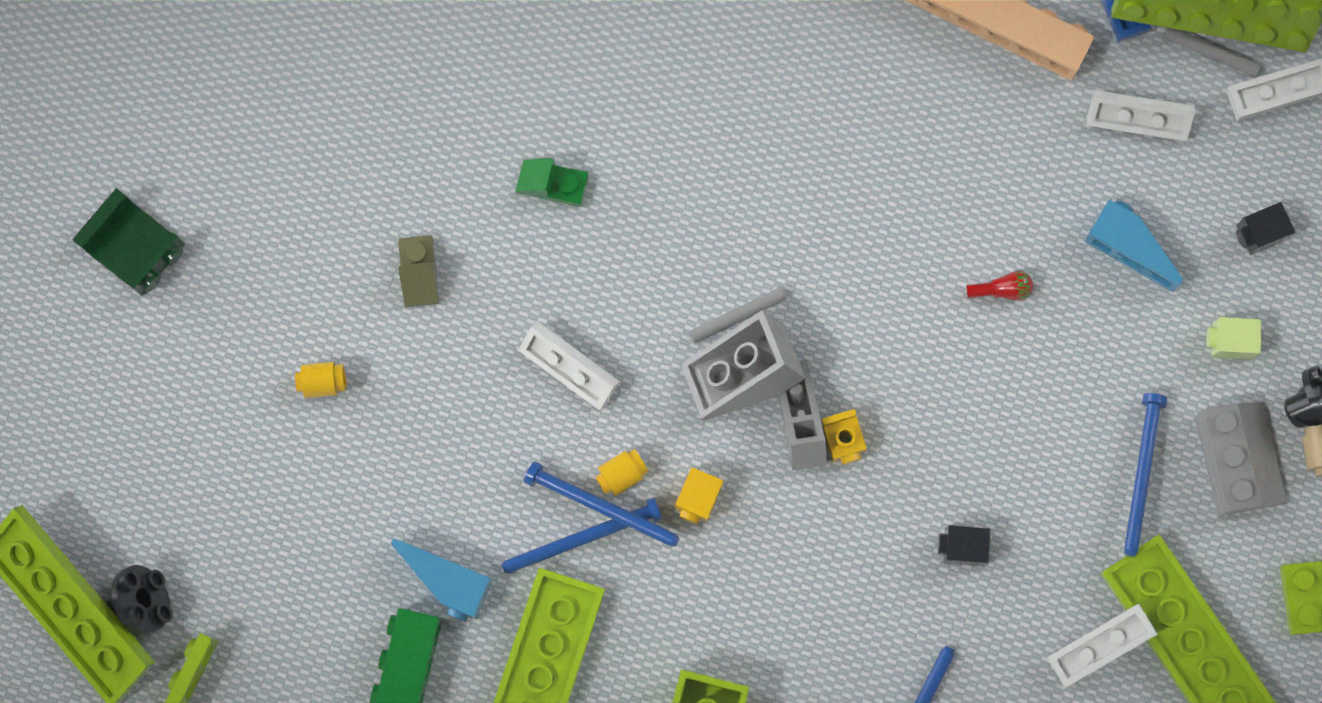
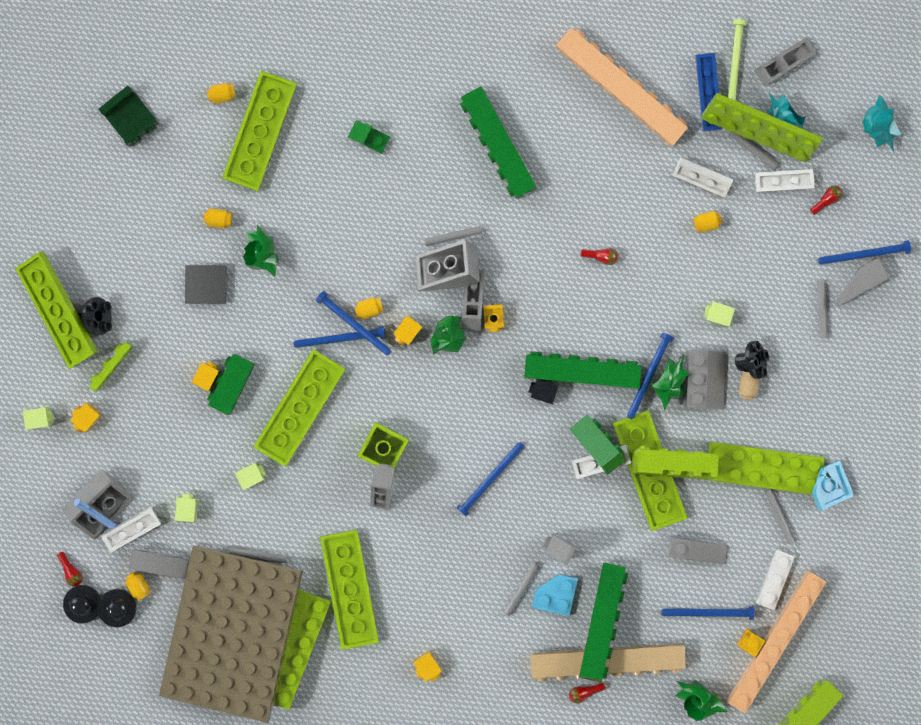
camera: 10 degrees right, 10 degrees up
(281, 167) = (221, 93): none -> yellow brick
(323, 499) = (205, 284): none -> dark grey slope
(359, 660) = (206, 375): none -> yellow brick
(361, 215) = (259, 131): none -> lime plate
(408, 419) = (260, 252): none -> green hair
(418, 271) = (284, 169): olive slope -> none
(450, 583) = (263, 346): dark azure slope -> none
(568, 365) = (354, 242): white plate -> none
(772, 485) = (448, 335): none -> green hair
(776, 139) = (498, 142): none -> green brick
(1024, 493) = (582, 371): none -> green brick
(1089, 614) = (598, 444): none -> green brick
(1129, 241) = (676, 245): dark azure slope -> none
(1169, 187) = (707, 221): none -> yellow brick
(1186, 474) = (671, 382): none -> green hair
(1236, 615) = (674, 463): none -> lime wedge
(1264, 228) = (752, 257): black brick -> none

